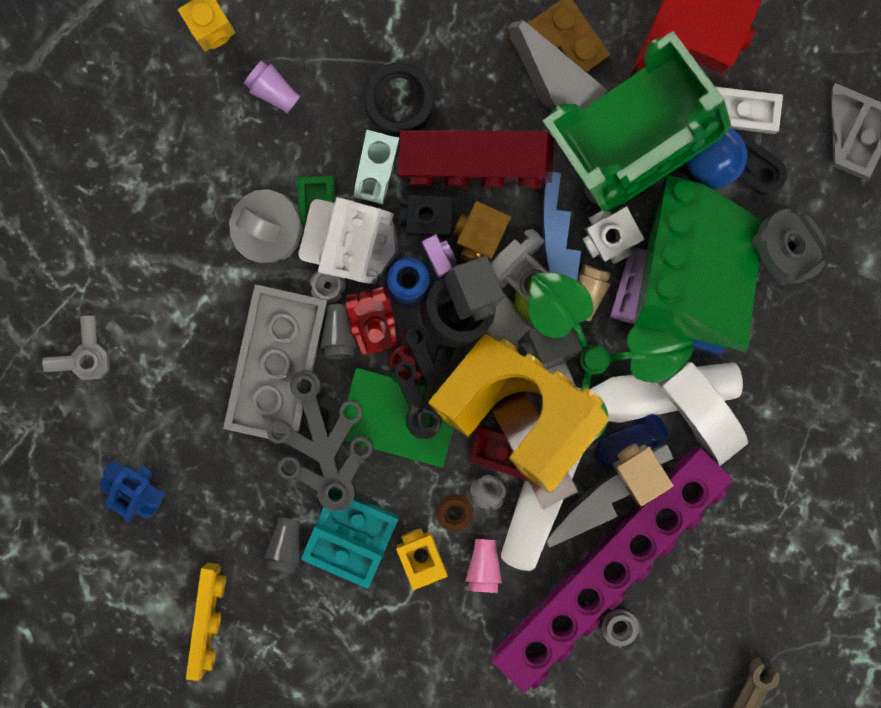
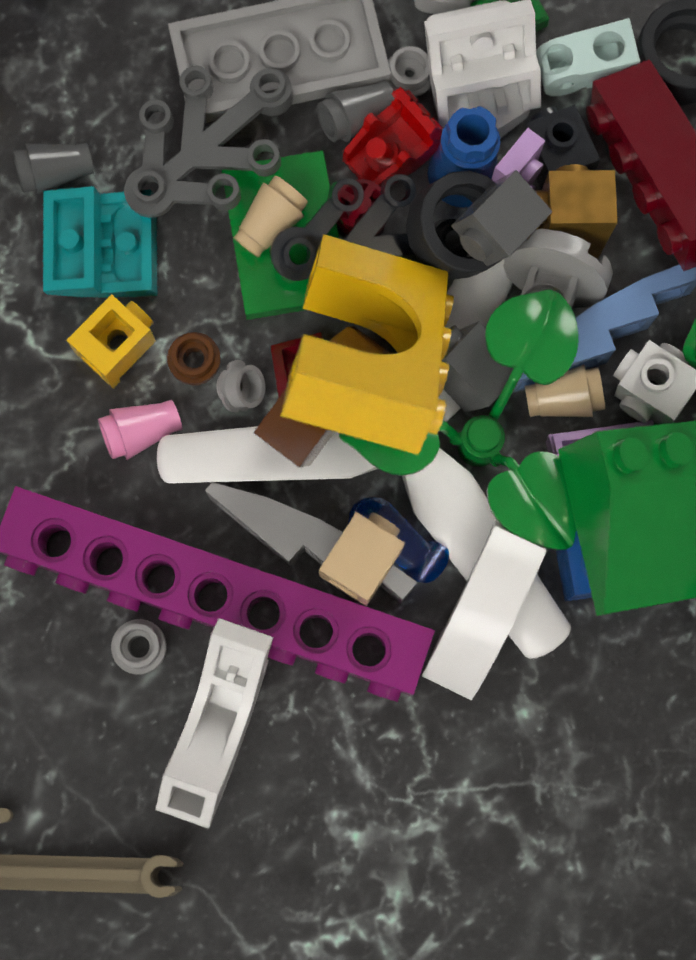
camera: 60 degrees right, 10 degrees down
(389, 424) = (272, 211): none -> tan cone
(694, 606) = (215, 724): none -> white arch

